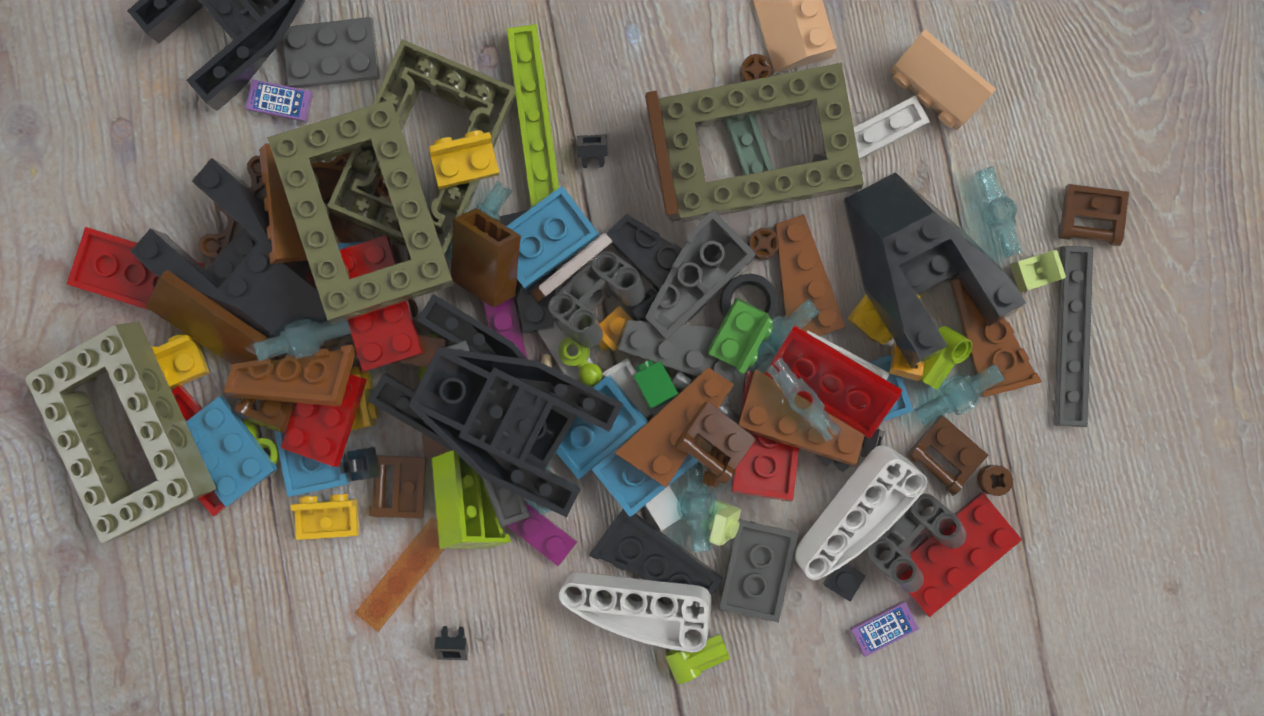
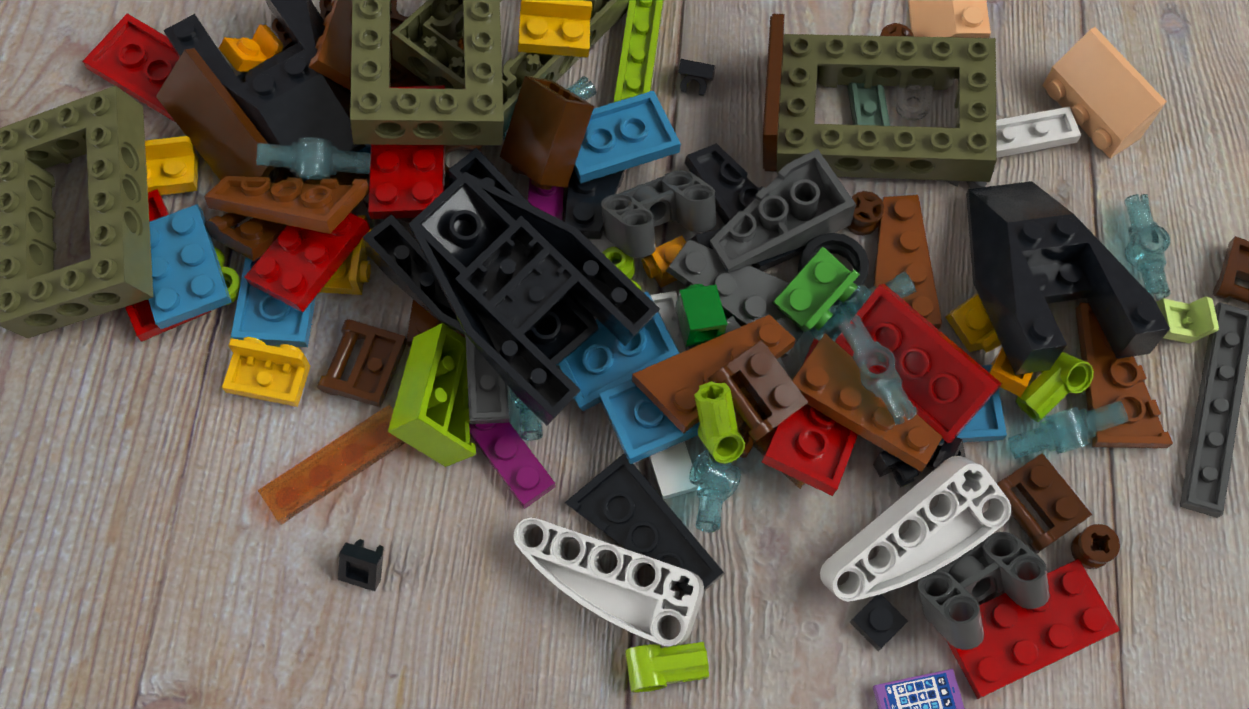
camera: 20 degrees right, 20 degrees down
(210, 242) = (249, 53): none -> light orange bracket
(361, 464) = (329, 325): black tile -> none
(571, 267) = (628, 176): tile -> none
(691, 478) = (718, 422): none -> lime piece
(724, 524) = (744, 502): yellowish green bracket -> none
(758, 570) = (771, 577): dark grey plate -> none

